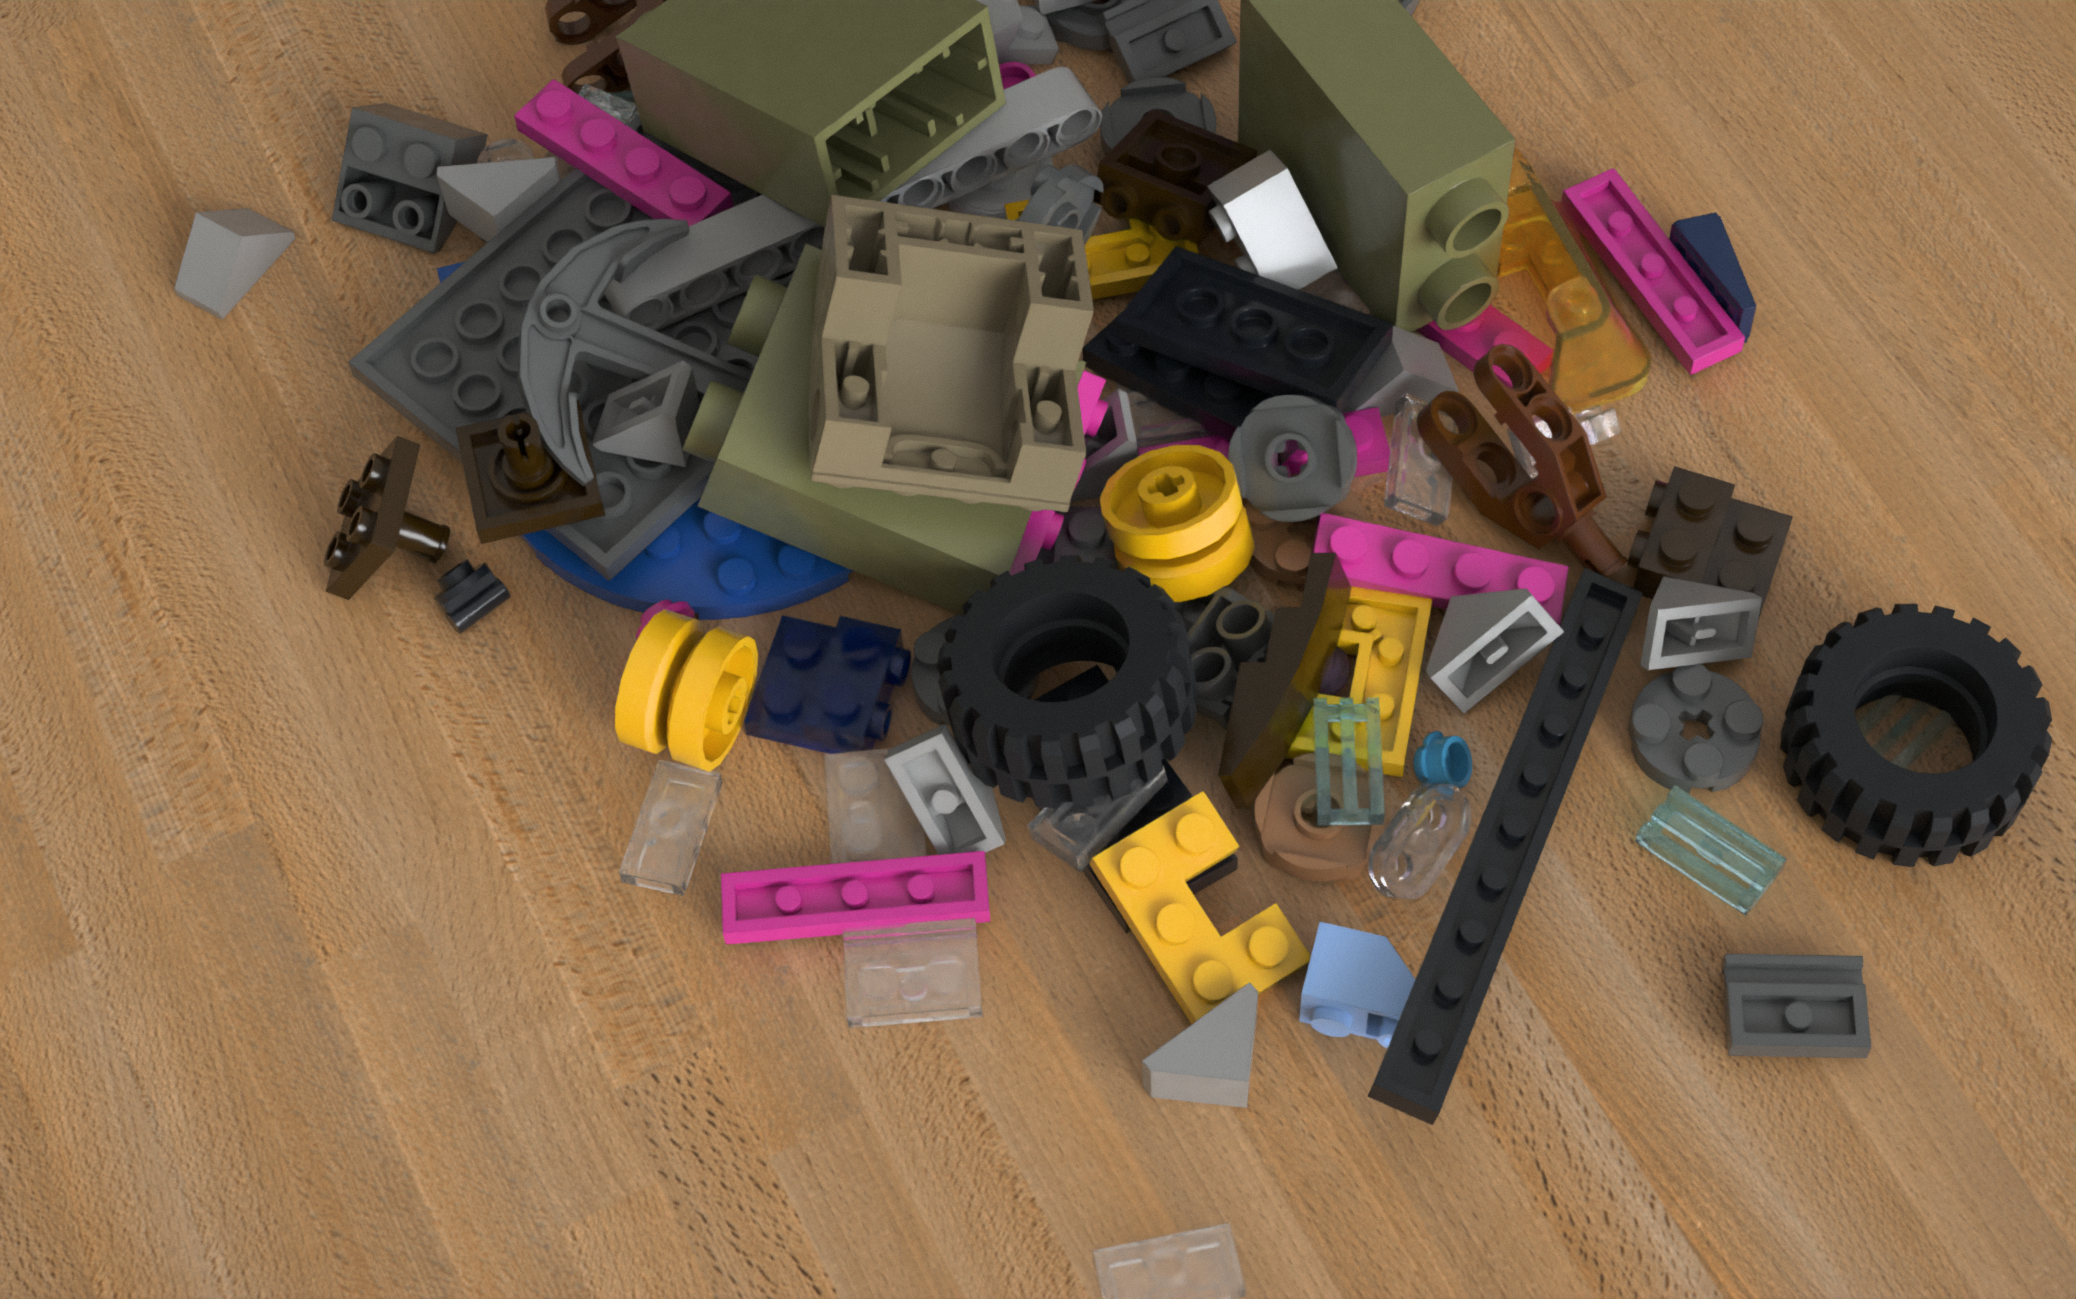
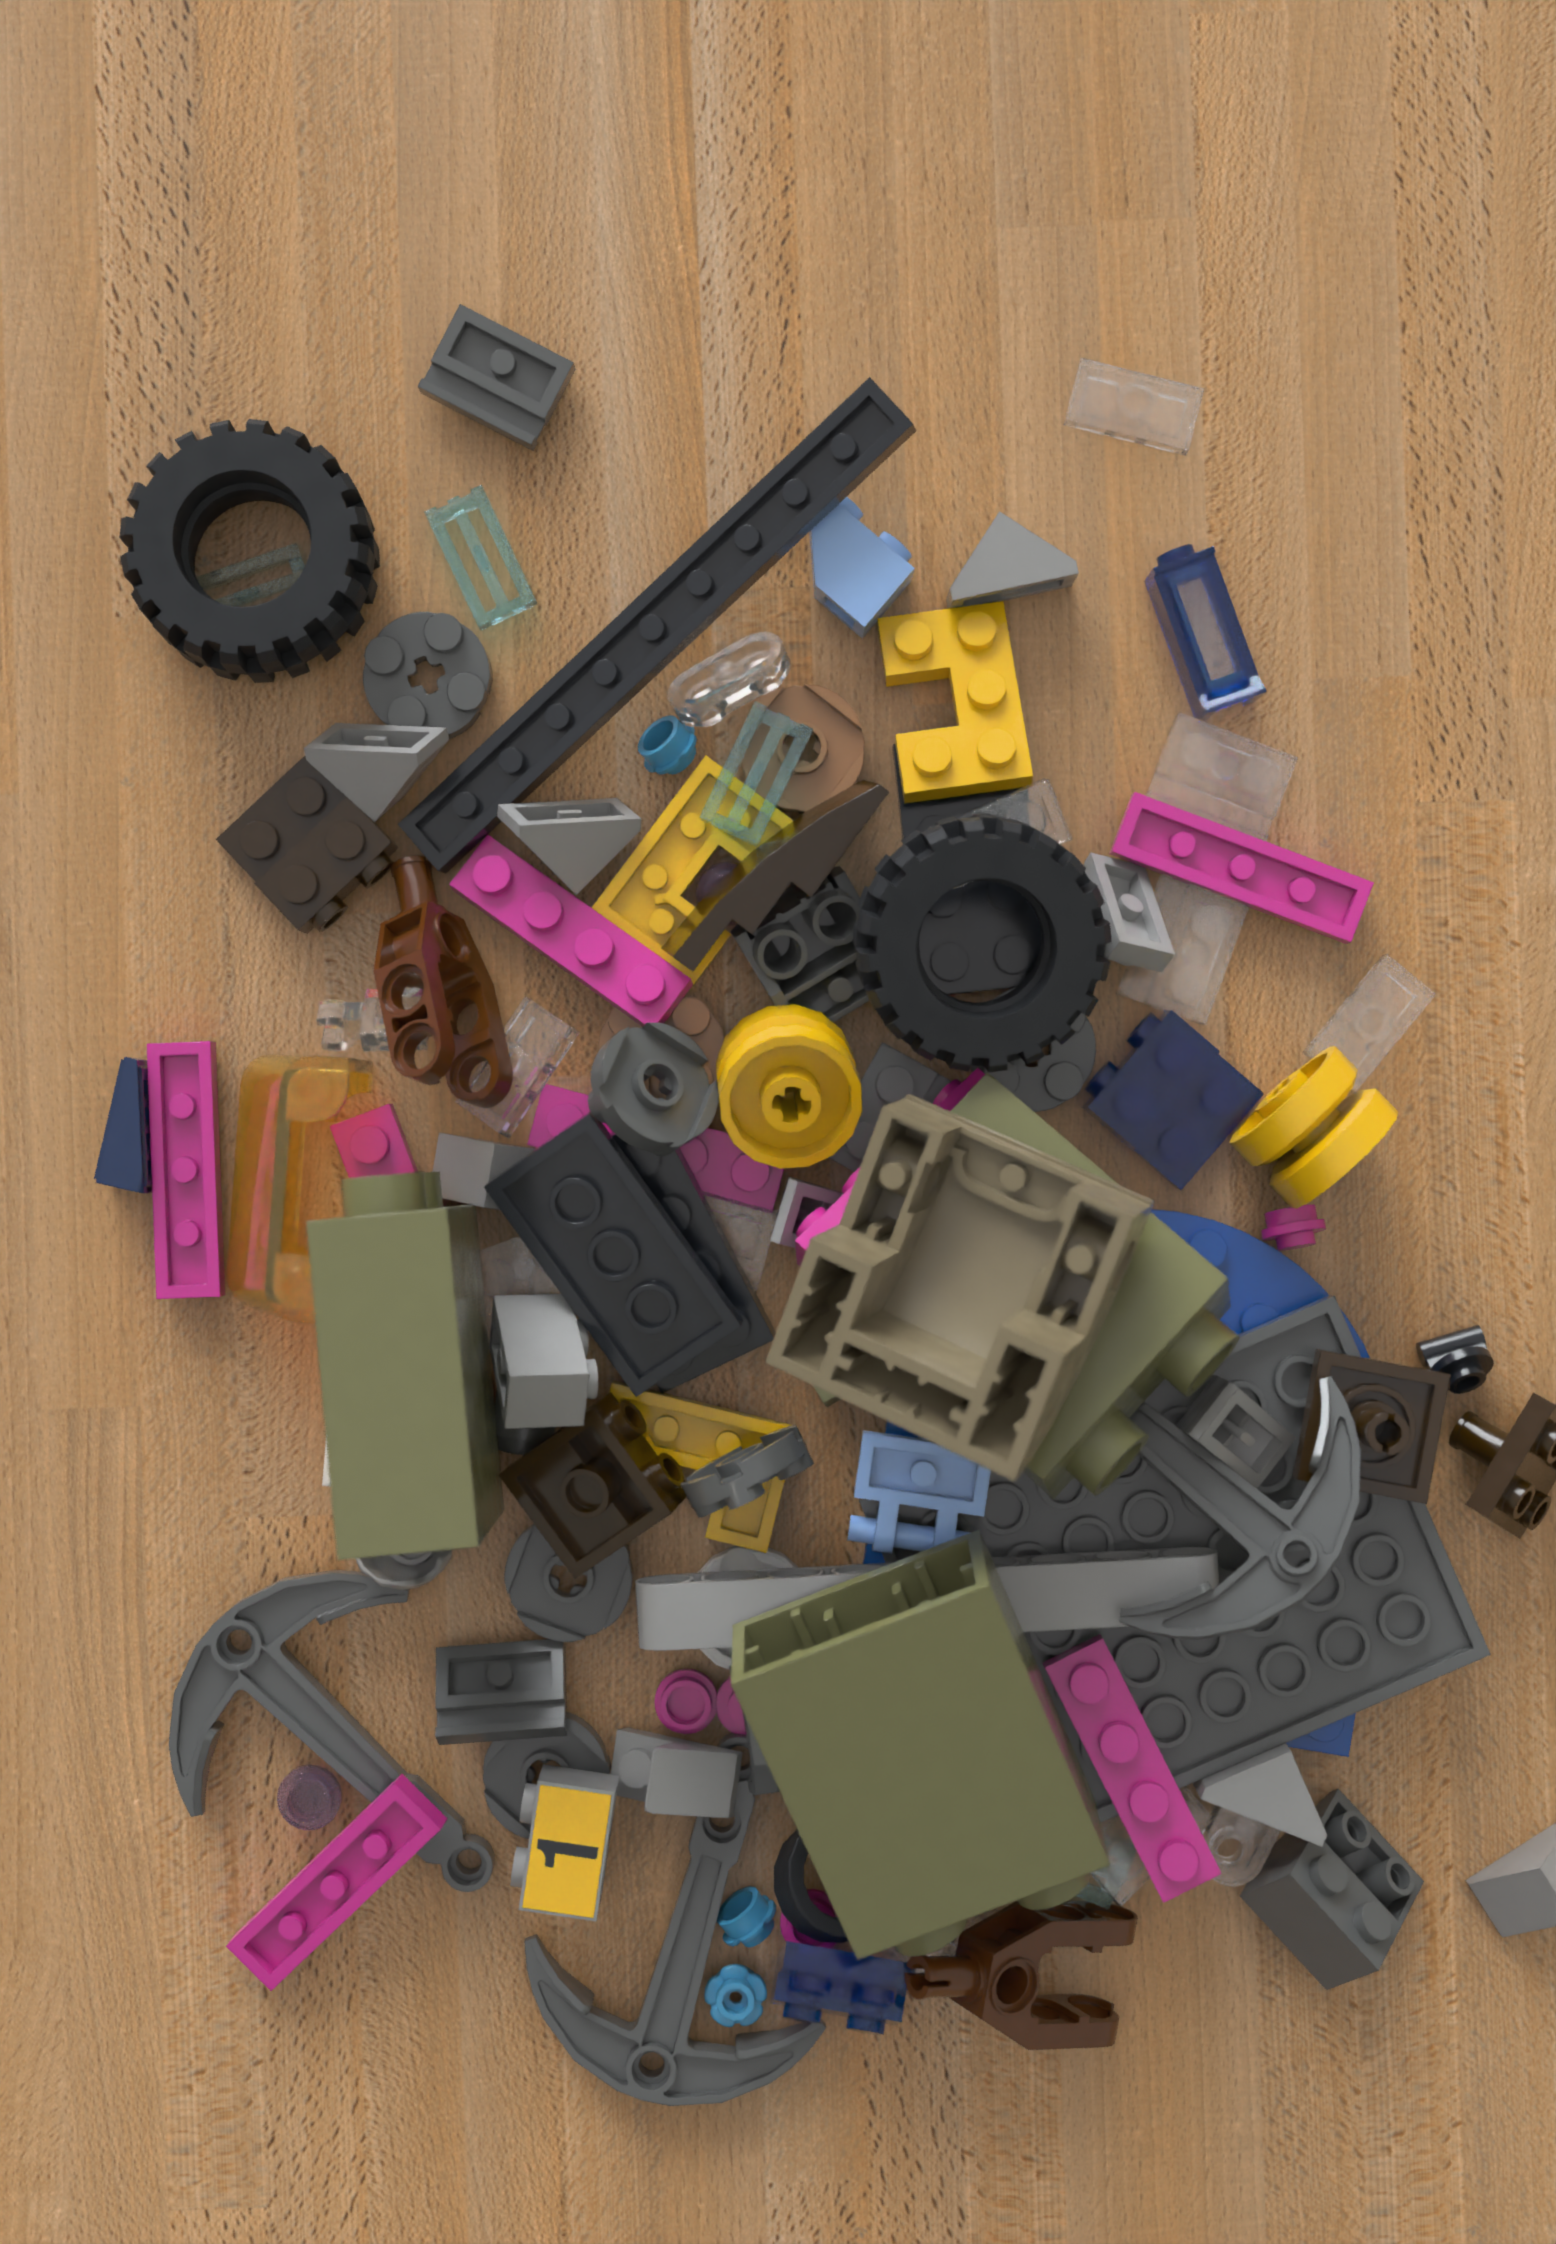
camera: 155 degrees left, 30 degrees up
(992, 1083) = (1202, 631): none -> clear blue window

